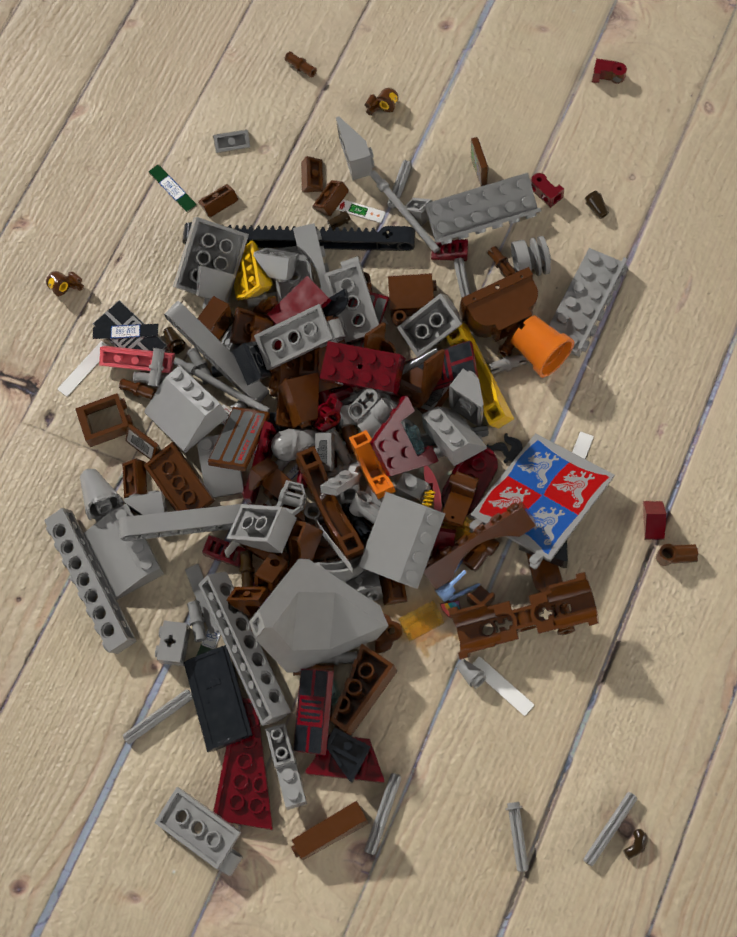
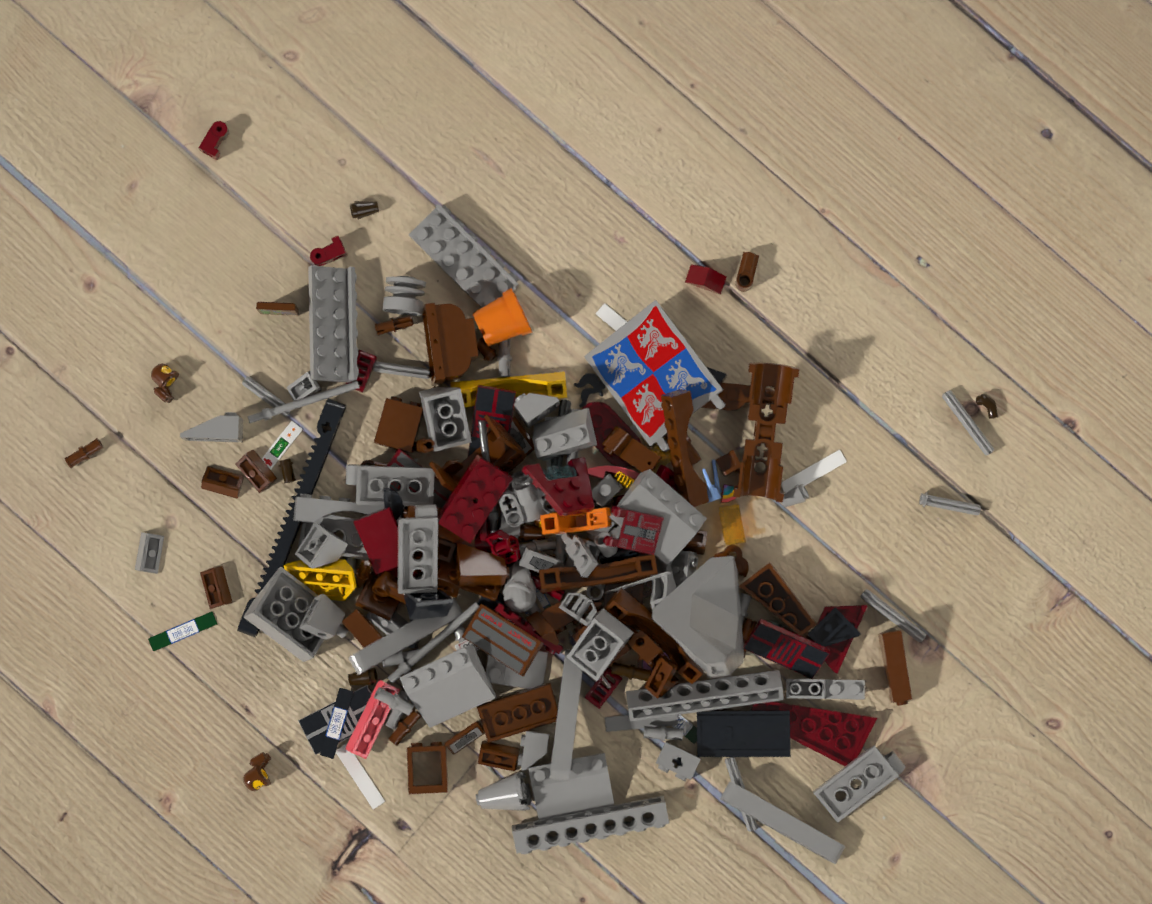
camera: 80 degrees left, 15 degrees up
(138, 766) = (782, 822): none -> light grey beam
(381, 522) = (638, 531): none -> dark red flag

